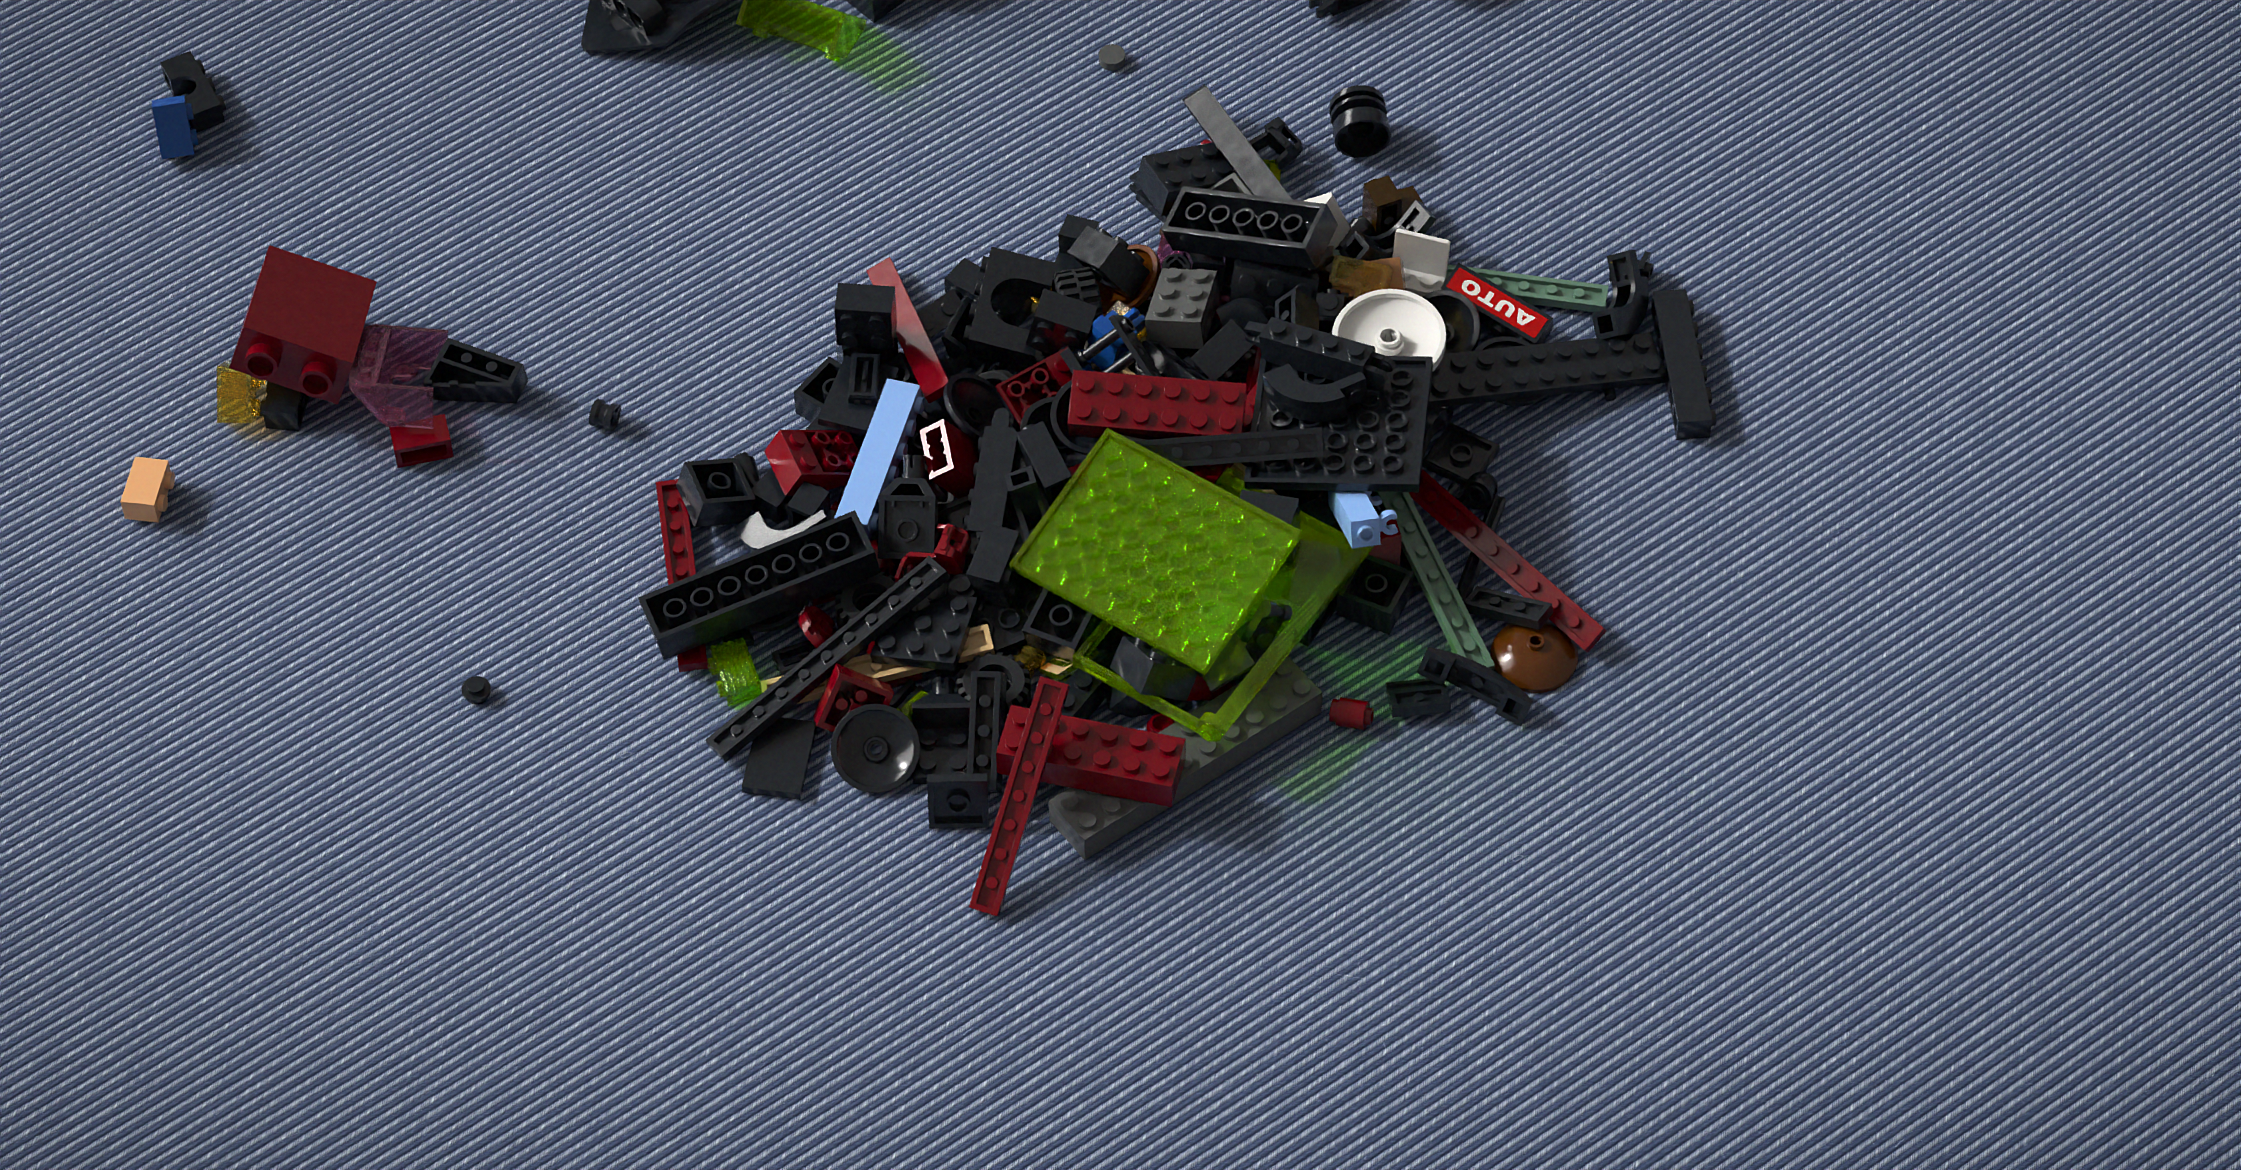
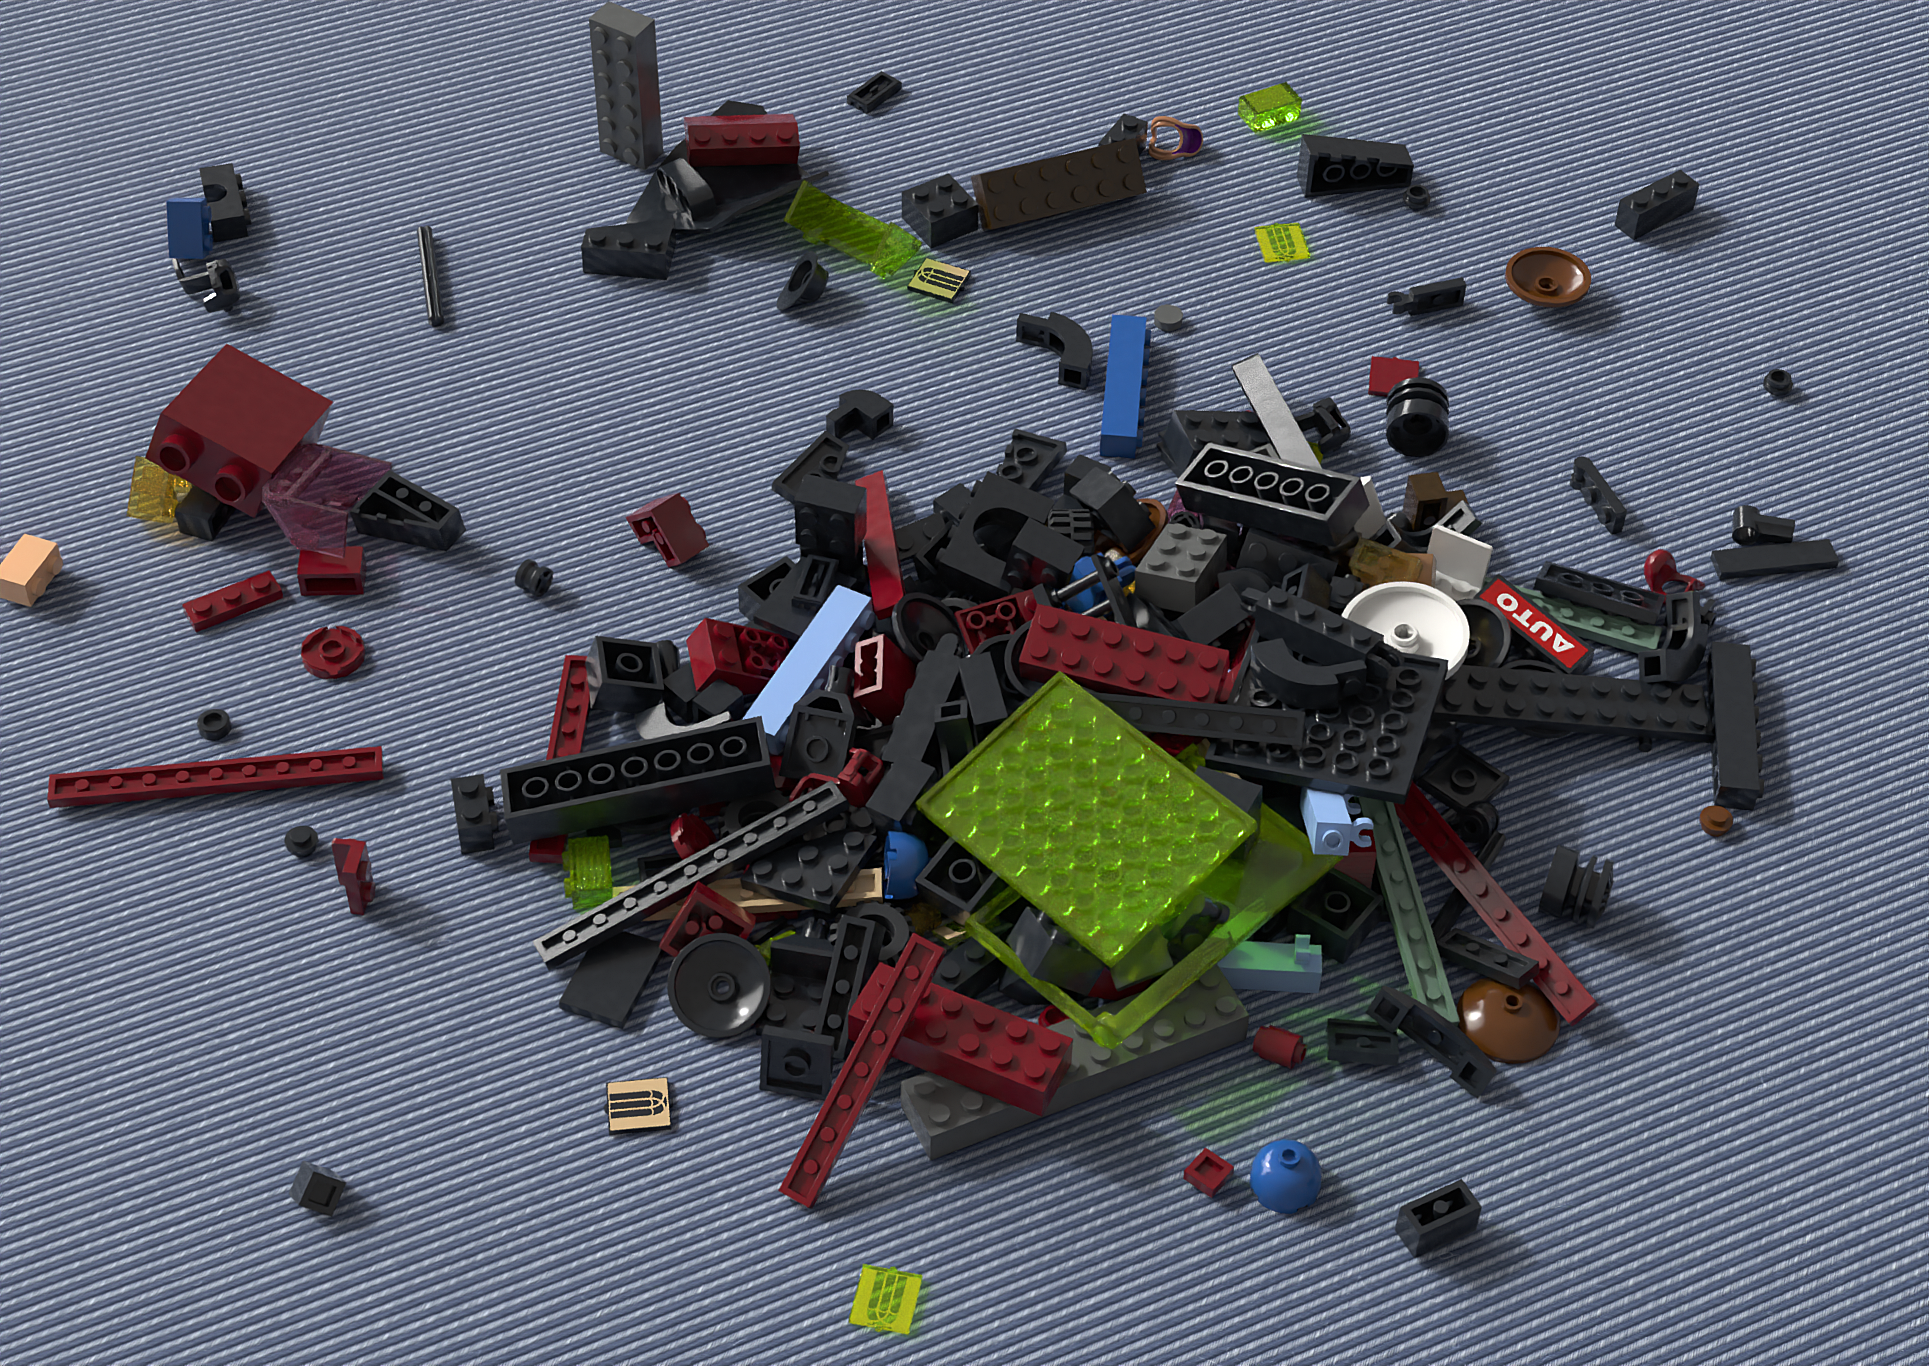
camera: 10 degrees right, 5 degrees down
(218, 170) = (219, 278): none -> black piece
(339, 484) = (232, 601): none -> dark red plate
(362, 600) = (214, 724): none -> black tile
(382, 647) = (215, 777): none -> dark red plate
(413, 133) = (430, 276): none -> black axle
(445, 516) = (332, 652): none -> dark red tile
(535, 707) = (354, 872): none -> dark red bracket
(589, 975) = (317, 1188): none -> black panel
(595, 75) = (630, 249): none -> black wedge
(619, 639) = (472, 813): none -> black brick
(715, 345) = (671, 528): none -> dark red brick
(768, 81) = (805, 283): none -> black piece
(826, 269) = (821, 459): none -> black wing
(832, 860) = (638, 1106): none -> piece
(854, 201) = (860, 411): none -> black brick
(890, 55) = (939, 280): none -> piece
(1007, 616) = (903, 862): none -> blue cylinder
(1018, 223) = (1030, 458): none -> black wing
(1026, 98) = (1065, 339): none -> black arch
(1077, 976) = (885, 1299): none -> clear neon green piece
(1087, 134) = (1123, 386): none -> blue brick
(1314, 827) = (1208, 1172): none -> dark red plate
(1327, 79) = (1388, 372): none -> dark red piece
(1335, 646) = (1274, 966): none -> light blue brick
(1377, 818) = (1285, 1176): none -> blue cylinder
(1506, 829) = (1438, 1218): none -> black brick
(1532, 167) = (1598, 494): none -> black plate
(1549, 262) = (1599, 592): none -> black plate
(1572, 532) = (1576, 886): none -> black wheel
(1599, 228) = (1661, 568): none -> dark red piece
(1672, 174) = (1751, 526): none -> black piece
(1675, 27) = (1778, 382): none -> black plate
(1679, 452) = (1715, 820): none -> reddish brown plate
(1696, 201) = (1774, 559): none -> black tile

